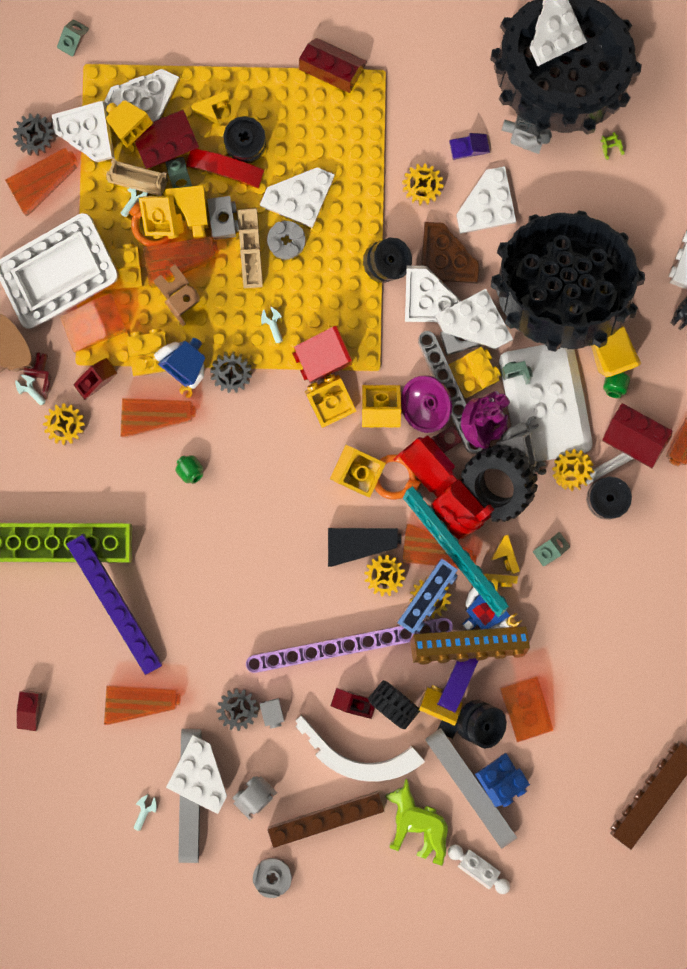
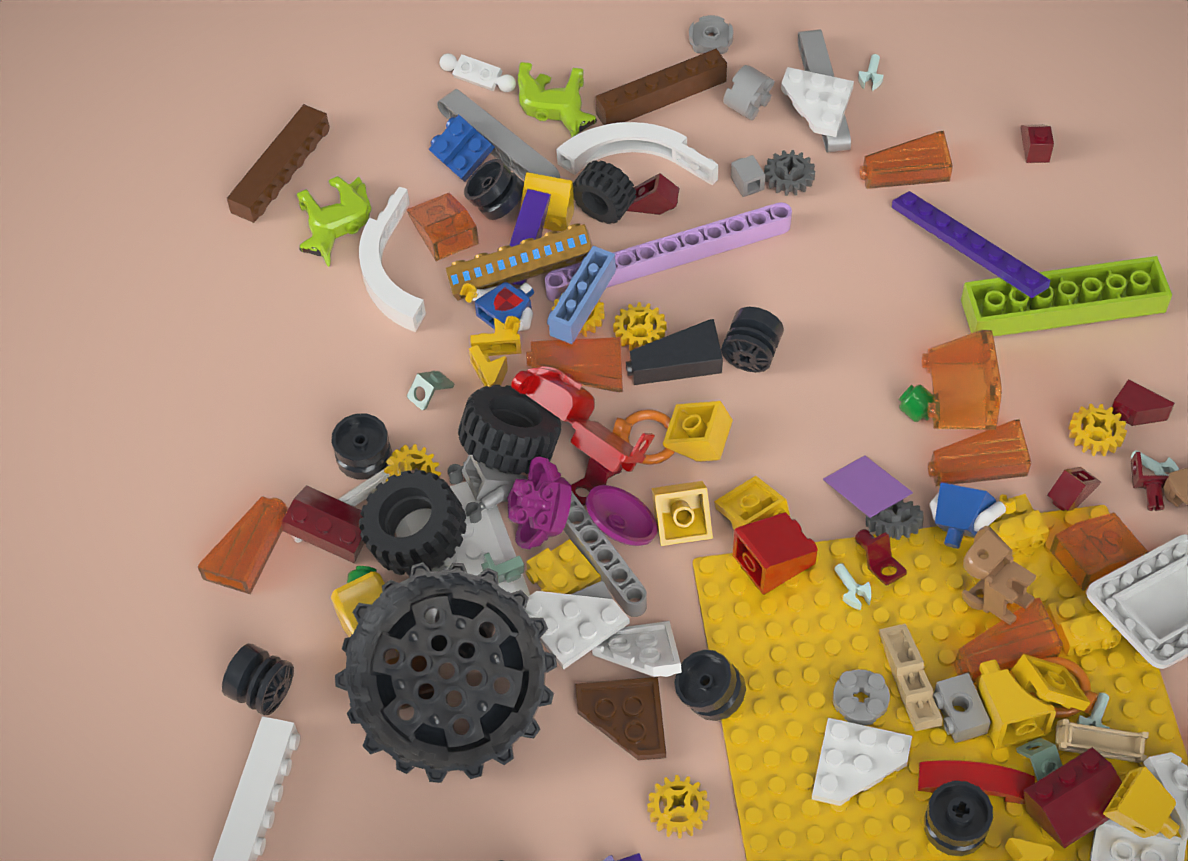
camera: 175 degrees right, 30 degrees down
(28, 439) = (1141, 405): none -> dark red slope
(153, 473) = (964, 382): none -> clear orange windscreen
(243, 403) = (867, 486): none -> medium lavender piece
(250, 342) = (879, 555): none -> dark red bracket
(302, 540) = (752, 339): none -> black wheel
(455, 551) = (562, 355): teal plate -> none
(488, 203) = (577, 799): white plate -> none
(586, 670) = (390, 299): none -> white arch
(601, 413) = (398, 499): none -> black tyre
(612, 724) = (336, 219): none -> lime animal

